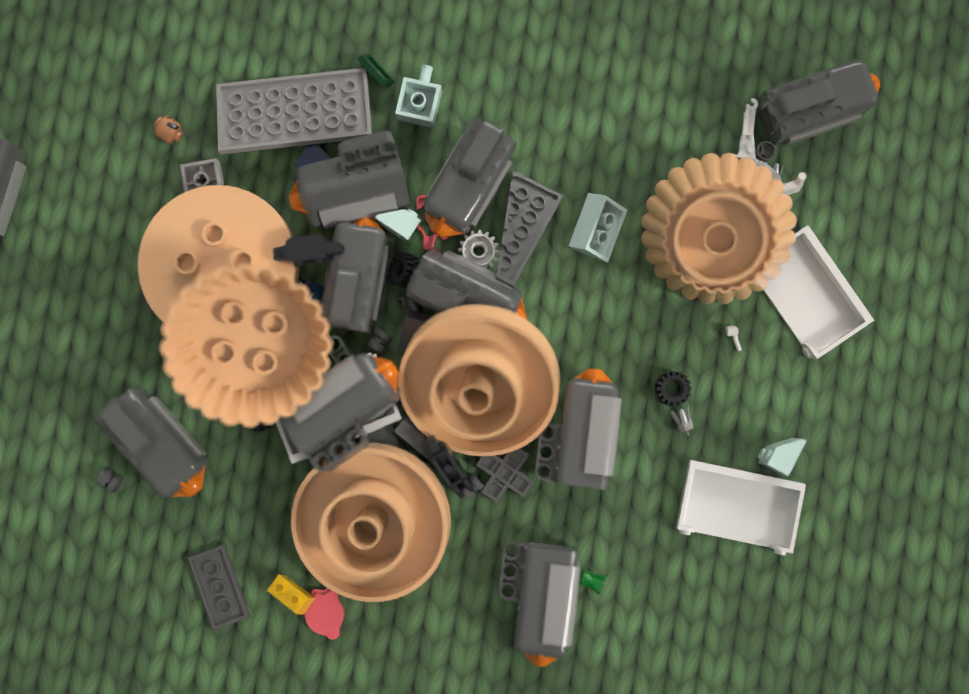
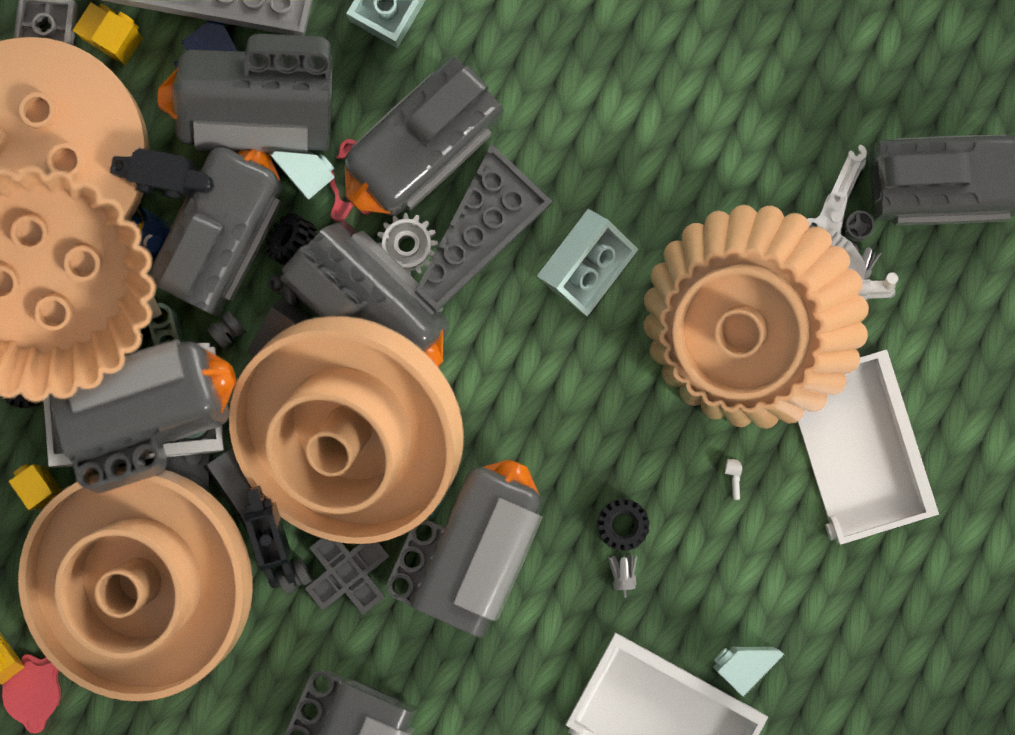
camera: 15 degrees right, 0 degrees up
(245, 172) = (109, 32): none -> yellow brick
(286, 479) = (35, 486): none -> yellow brick

